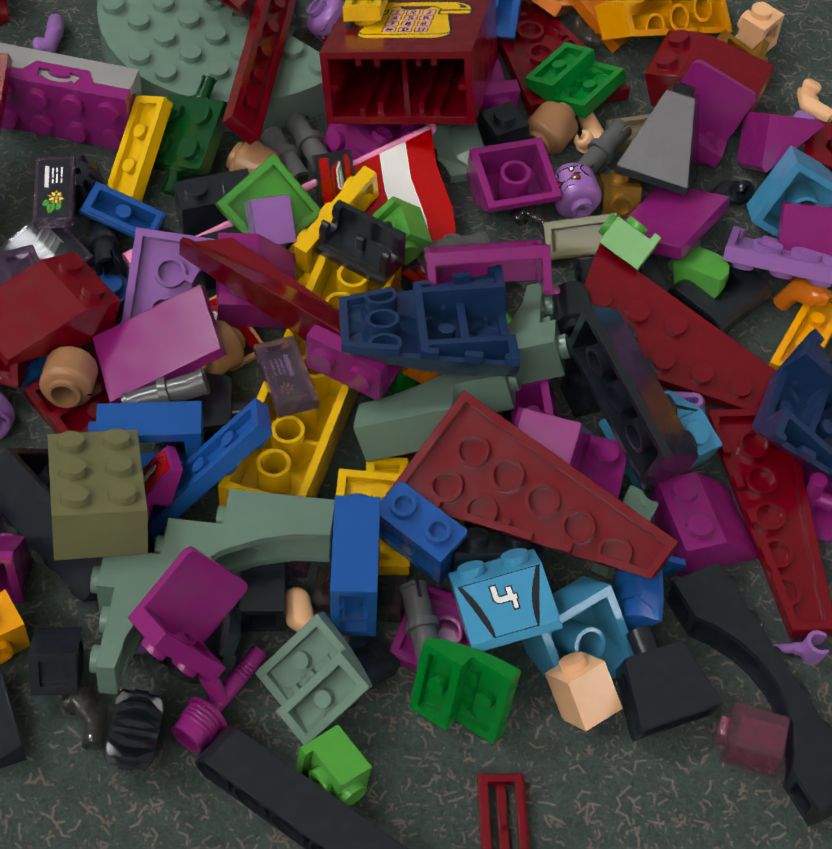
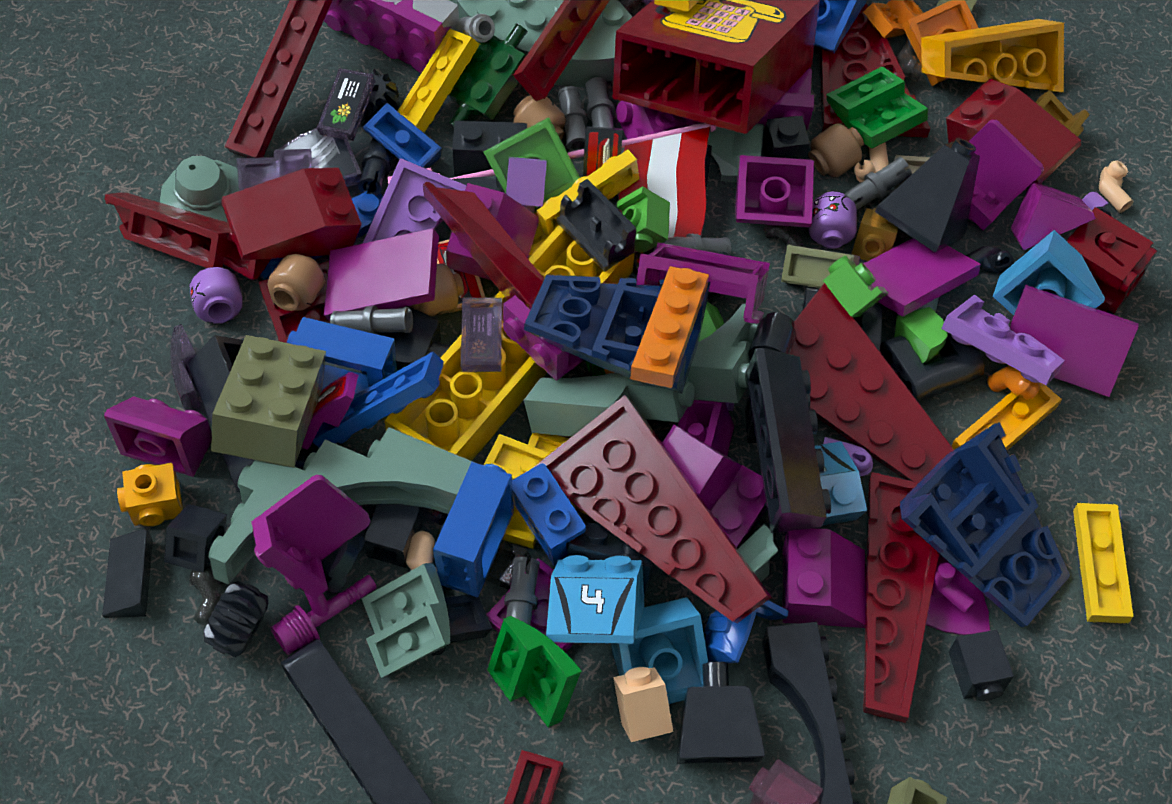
camera: 20 degrees right, 5 degrees up
(167, 85) = (478, 27): none -> light grey pin
(335, 765) = (396, 705): bright green brick -> none
(488, 312) = (669, 327): none -> orange plate
(760, 24) = (1086, 92): light nougat brick -> none
(805, 648) = (871, 726): medium lavender hand -> none

